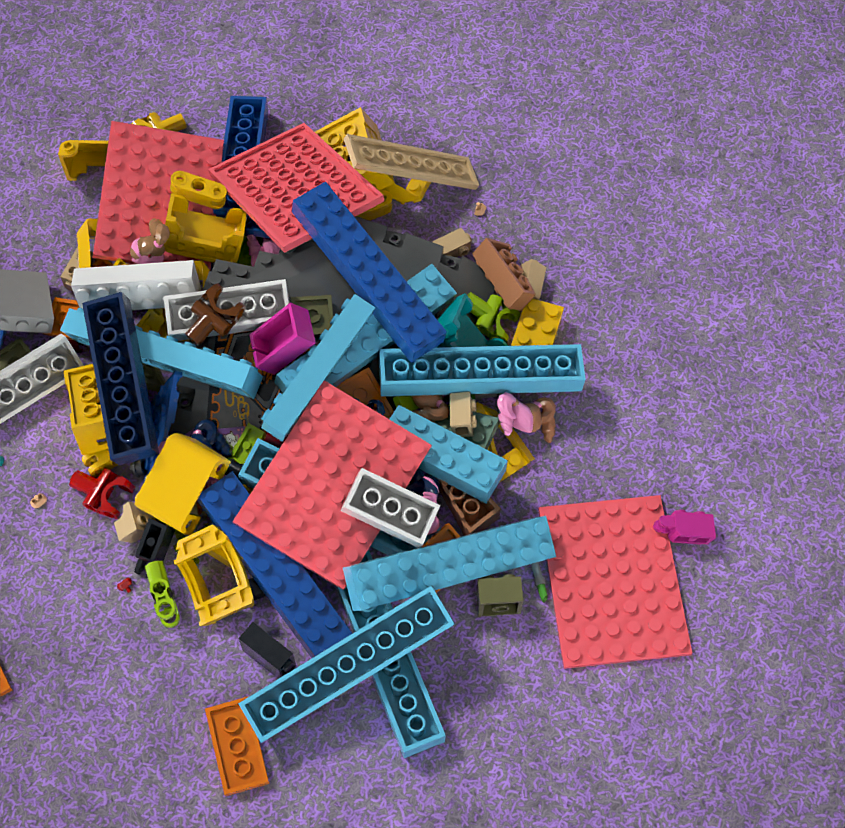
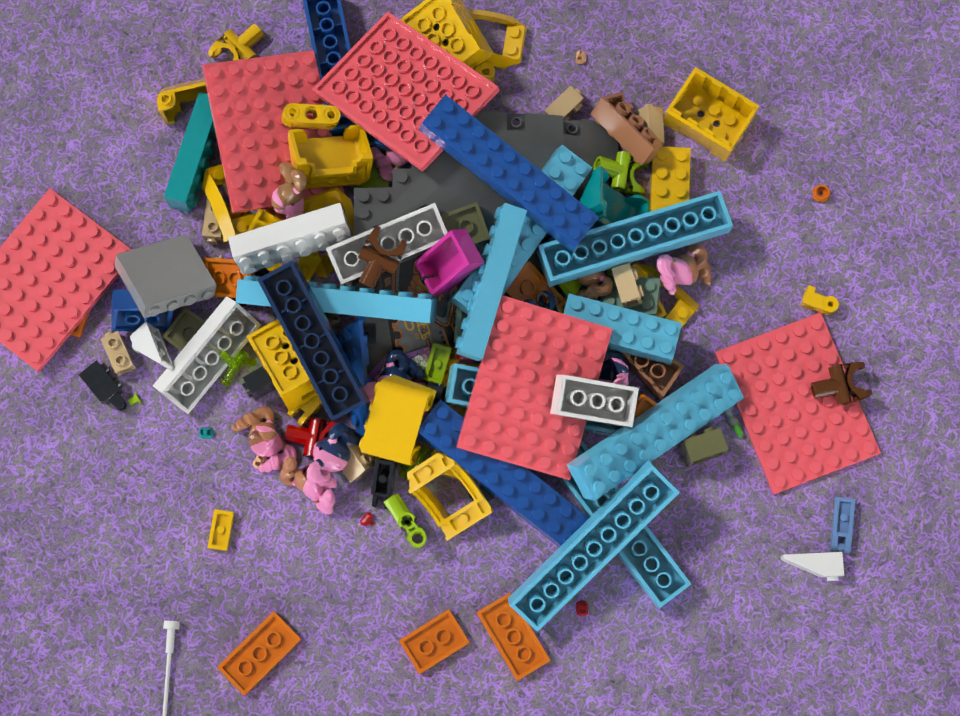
camera: 15 degrees left, 15 degrees up
(47, 399) = (235, 365): none -> clear neon green piece
(50, 480) = (265, 439): none -> hair
(58, 421) = (258, 383): none -> black brick
(79, 529) = (297, 477): none -> hair
(81, 201) = (192, 157): none -> teal brick
(105, 505) = (331, 455): none -> hair
(150, 729) = (434, 641): none -> orange plate
(267, 651) = (517, 550): black brick -> none
(321, 736) = (582, 608): none -> red rock
(410, 162) = (507, 33): tan plate -> none
(596, 754) = (823, 565): none -> white slope
(604, 275) = (718, 104): none -> yellow container
(632, 718) = (842, 524): none -> medium blue plate
(661, 485) = (818, 302): none -> yellow leg
(664, 571) = (841, 384): none -> reddish brown connector
(687, 527) = (852, 338): dark pink hinge -> none
(688, 378) = (821, 188): none -> orange plate

